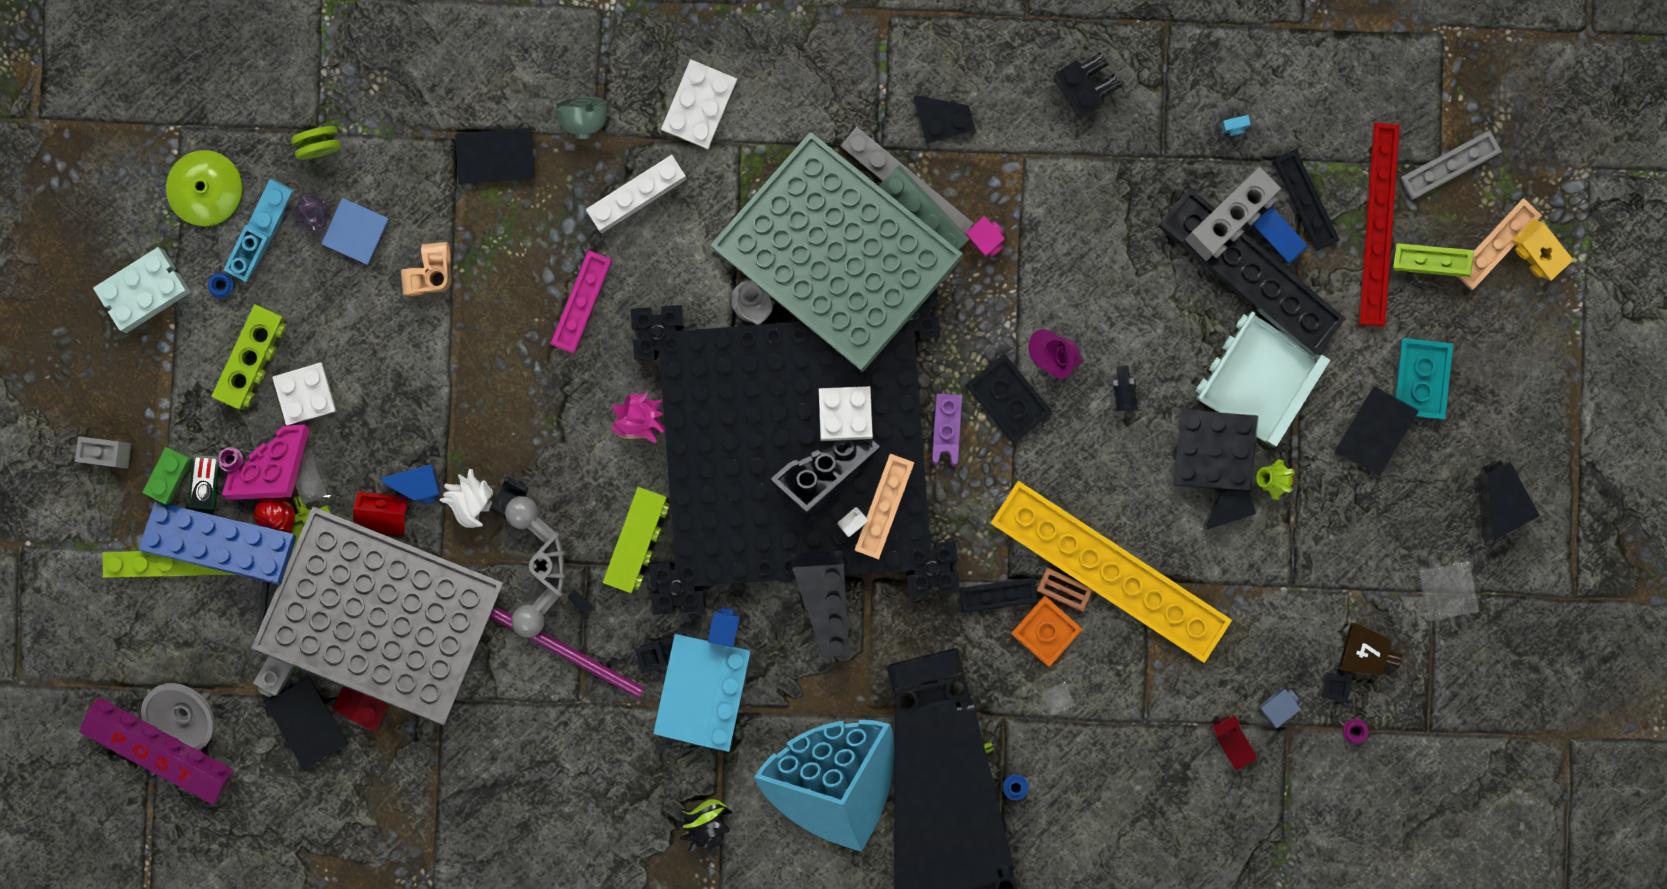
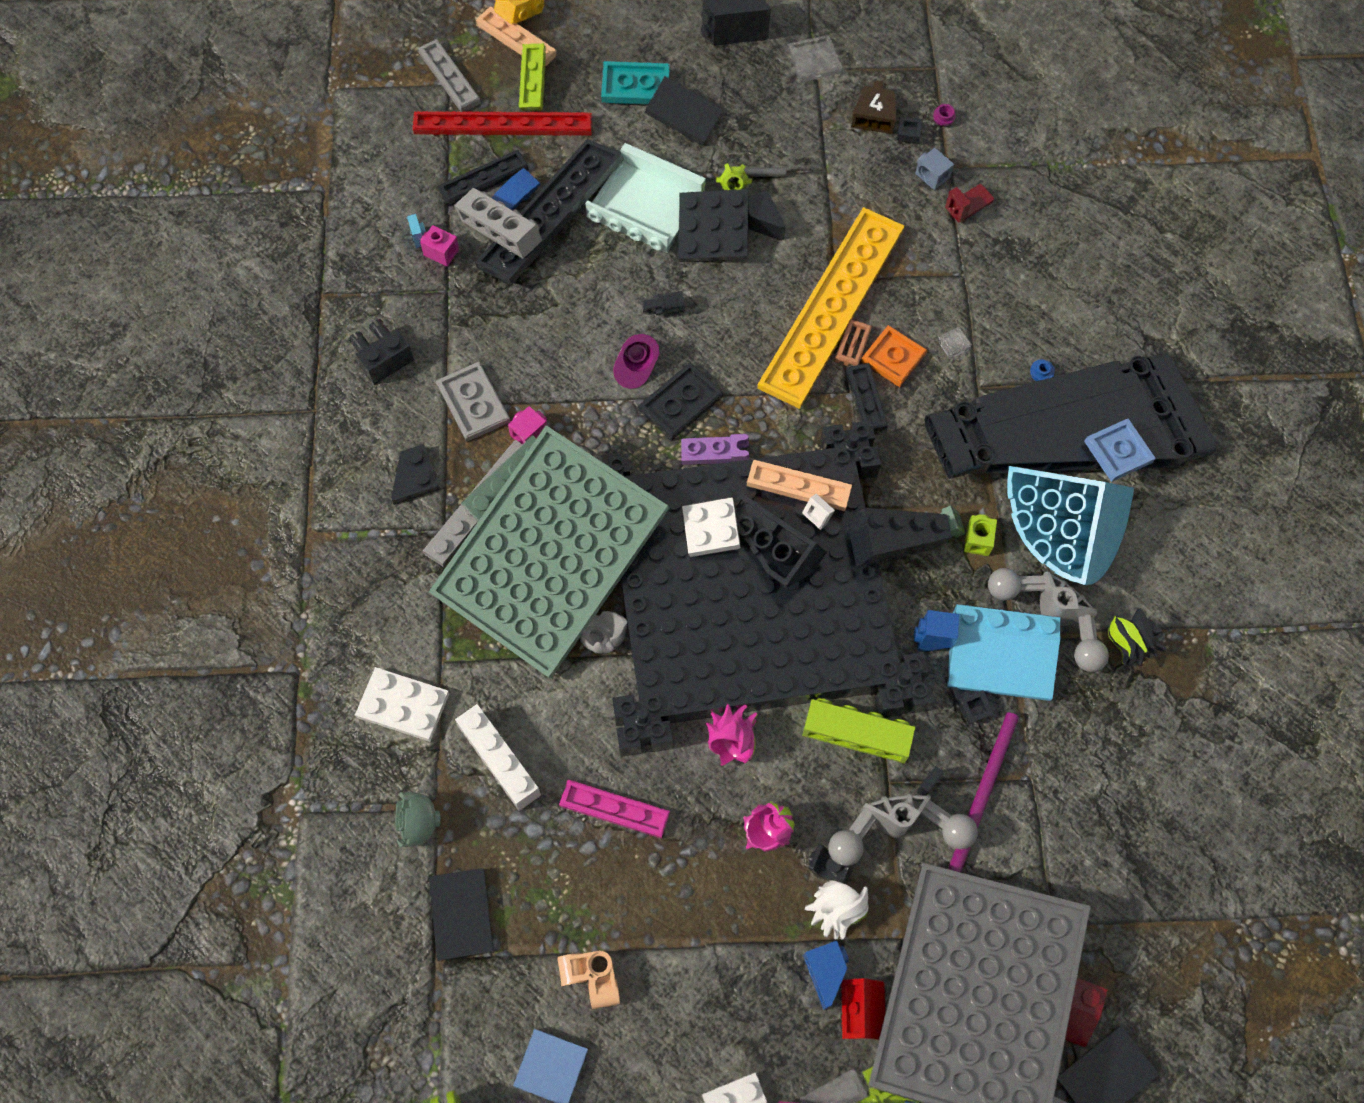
camera: 95 degrees left, 20 degrees down
(546, 443) = (769, 827): none -> dark pink hair
(691, 776) = (1057, 600): none -> light grey piece
(818, 690) = (976, 544): none -> lime brick
(847, 664) = (954, 520): none -> sand green tile
(901, 842) = (1119, 449): none -> medium blue plate
(1024, 180) = (473, 401): none -> light grey tile
(1215, 149) = (439, 245): none -> dark pink brick
(1292, 509) = (761, 172): none -> flat silver bar

